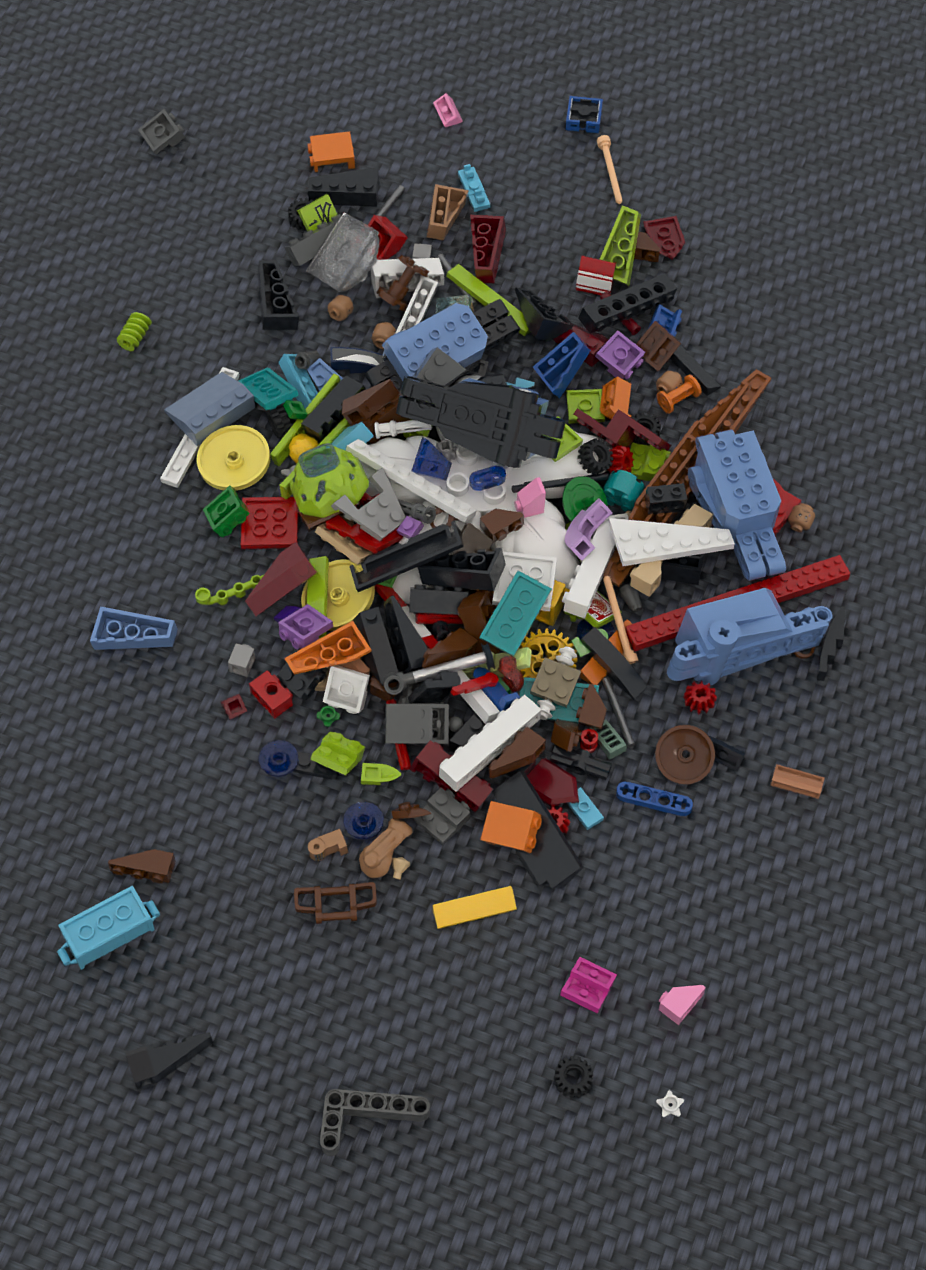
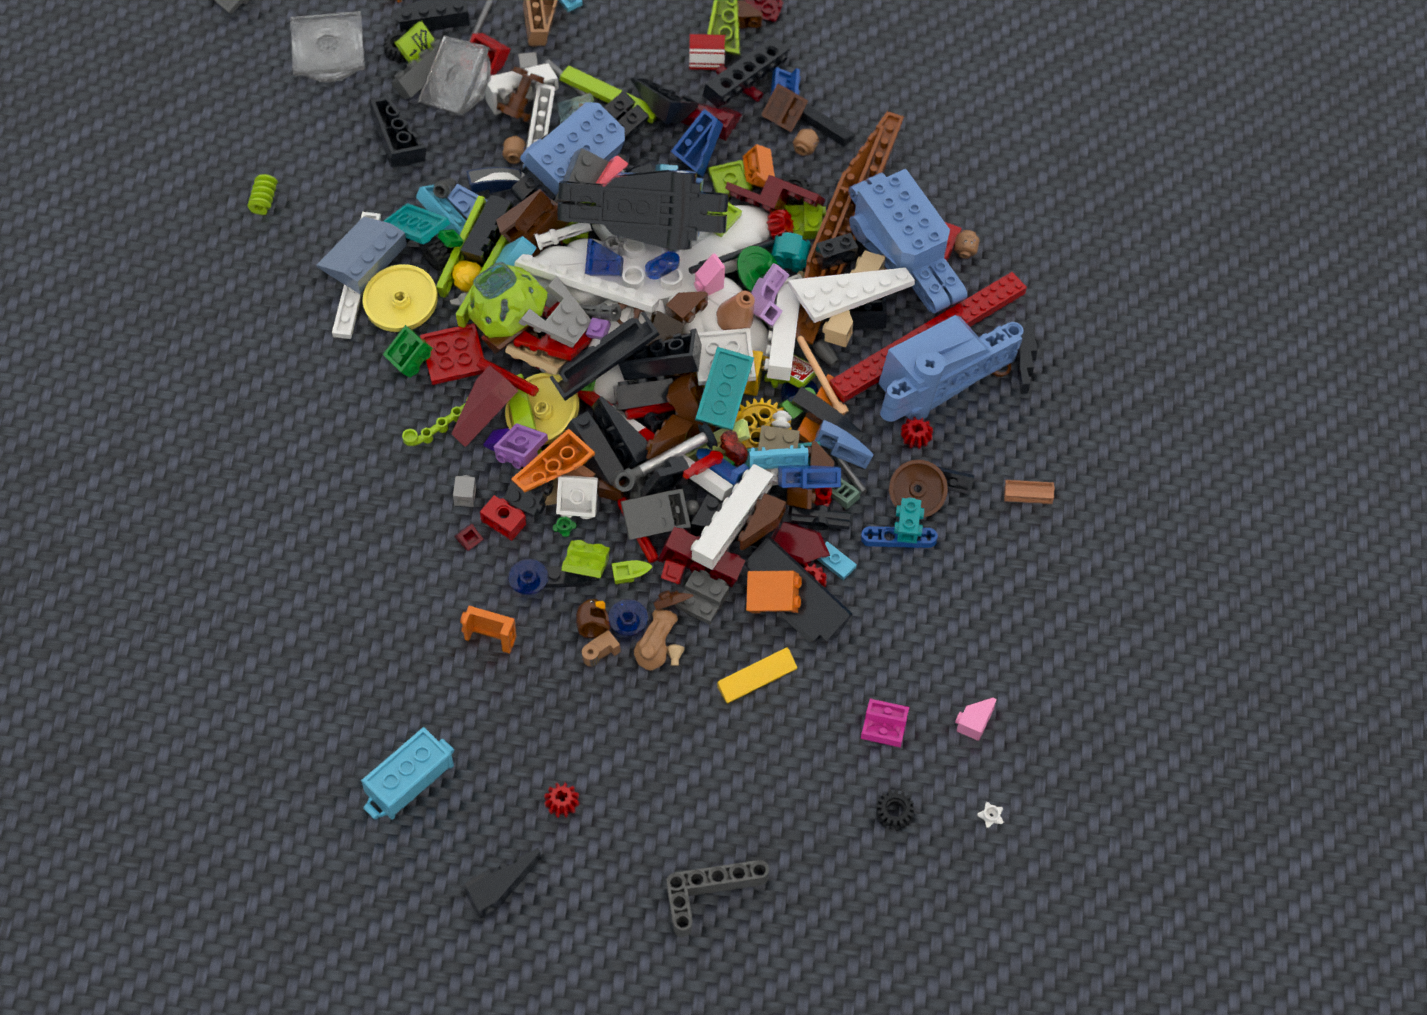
camera: 15 degrees left, 0 degrees up
(131, 630) = (347, 485): medium blue wedge -> none
(148, 864) = (431, 705): reddish brown slope -> none
(229, 798) = (489, 624): none -> orange panel
(234, 201) = (327, 46): none -> clear piece
(256, 988) = (554, 803): none -> red gear
(314, 558) = (516, 381): none -> red axle
(318, 891) = (633, 685): reddish brown bar -> none
(327, 814) = (592, 618): none -> reddish brown piece
(340, 307) = (463, 131): medium nougat head -> none
(420, 784) = (673, 571): none -> red tile
(464, 372) = (614, 167): none -> coral slope
(487, 241) = (591, 40): dark red wedge -> none
(548, 540) = (736, 312): none -> nougat cone
(552, 694) = (776, 457): none -> medium azure plate
(577, 719) = (809, 476): none -> blue slope
(588, 459) = (749, 223): black tyre -> none
(620, 356) = (752, 124): medium lavender plate -> none
(622, 693) = (843, 444): none -> medium blue slope
(667, 400) = (809, 158): orange hose -> none
(668, 780) = (908, 525): none -> teal brick

